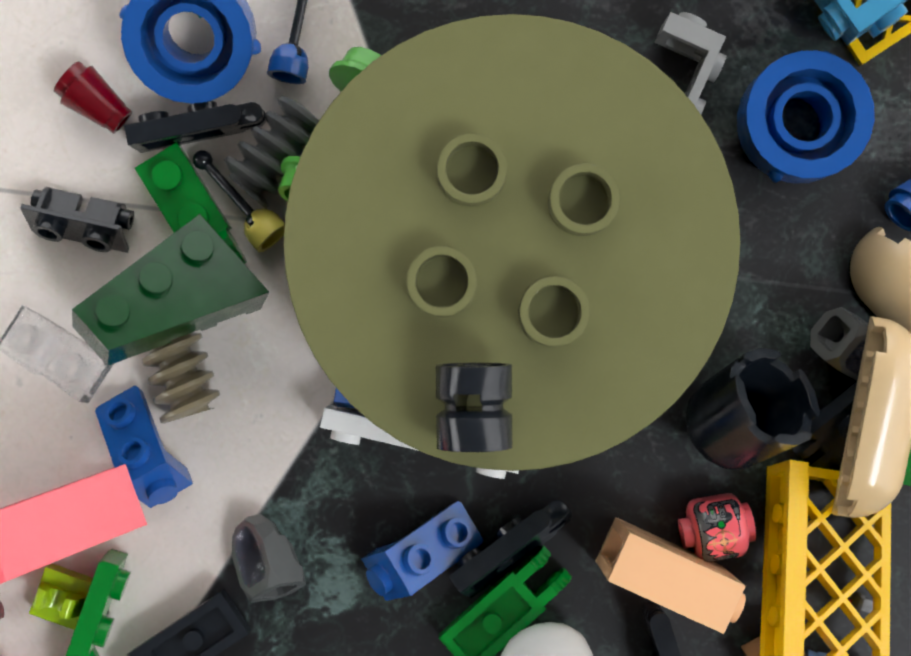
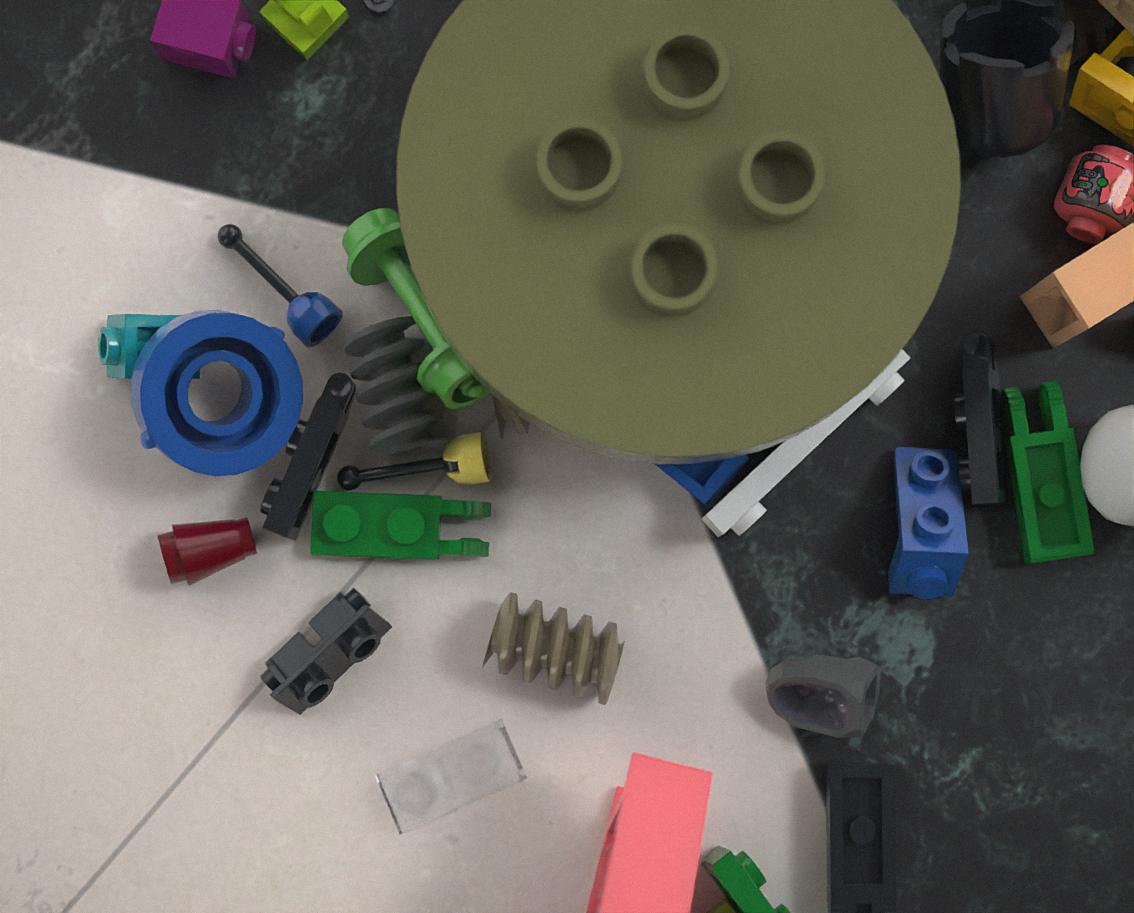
camera: 60 degrees left, 5 degrees down
(136, 442) = (602, 745): blue bracket -> none
(168, 293) = (480, 588): dark green wedge -> none
(474, 427) = (848, 330): black wheel -> none

